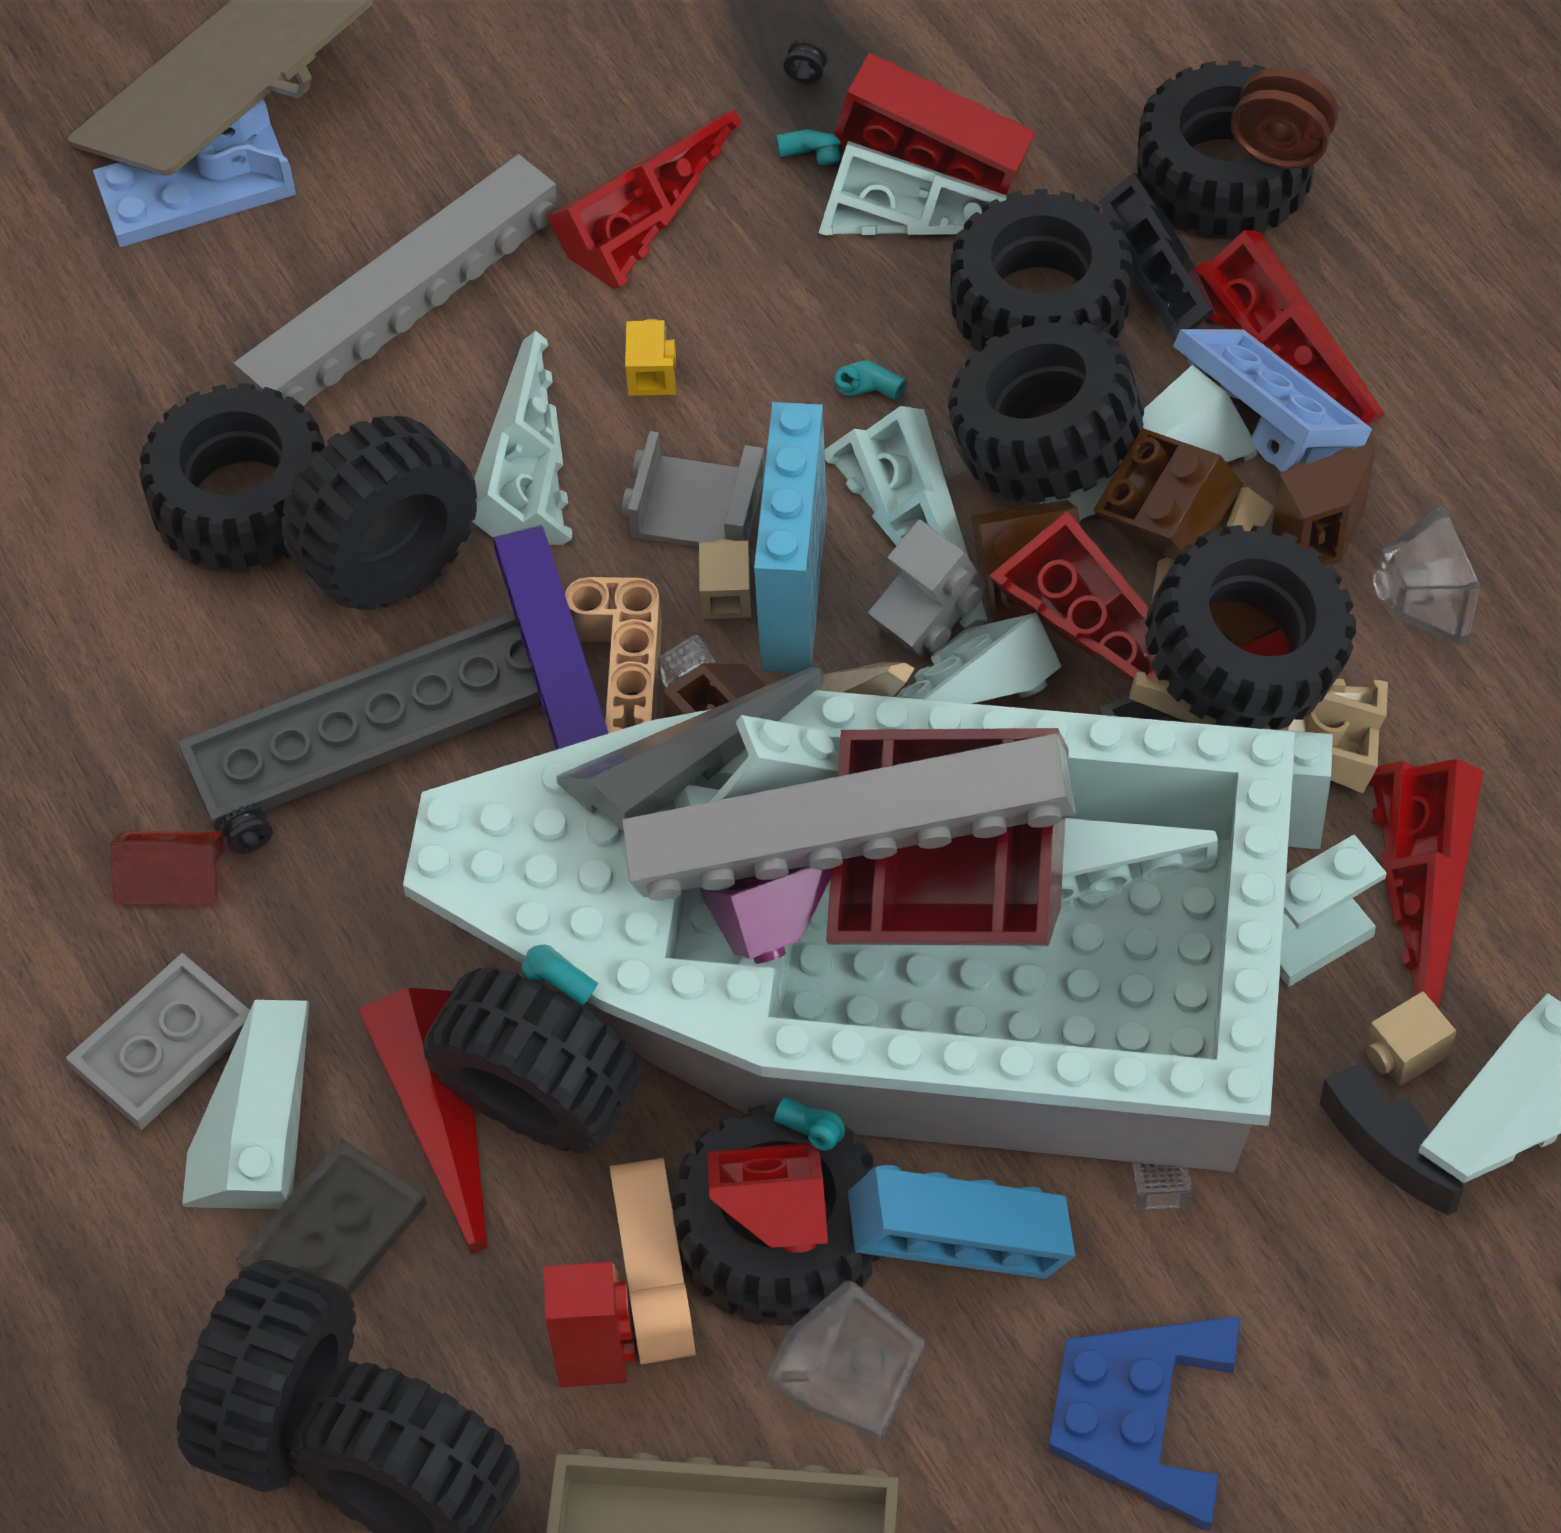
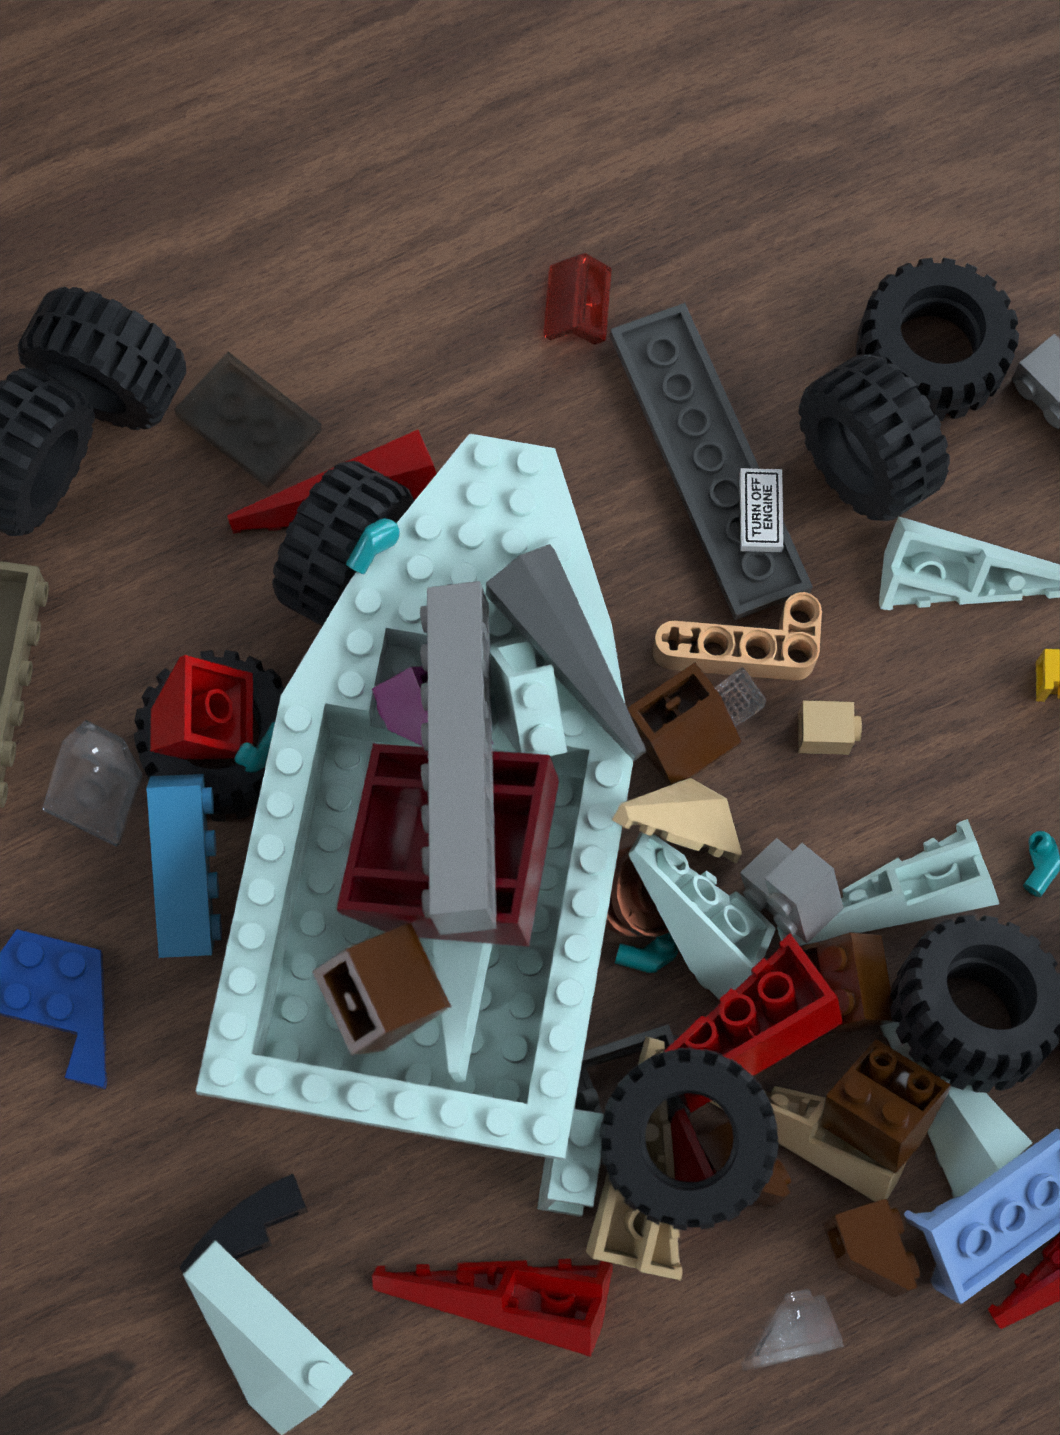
camera: 85 degrees right, 15 degrees up
(160, 1041) = (420, 300): light grey plate -> none
(246, 829) = (603, 356): black bush -> none
(251, 1125) = (340, 362): light aqua wedge -> none
(458, 645) = (761, 510): none -> white tile
(549, 637) = (732, 583): dark purple beam -> none
(588, 1323) = (140, 588): red wedge -> none
(652, 1261) = (148, 648): light nougat beam -> none
(692, 499) = (918, 707): light grey panel -> none
(791, 537) = (837, 768): medium azure brick -> none
(1137, 892) = (381, 990): none -> reddish brown slope
(1320, 909) = (447, 1188): light aqua panel -> none
(1410, 1039) = (334, 1254): tan brick -> none

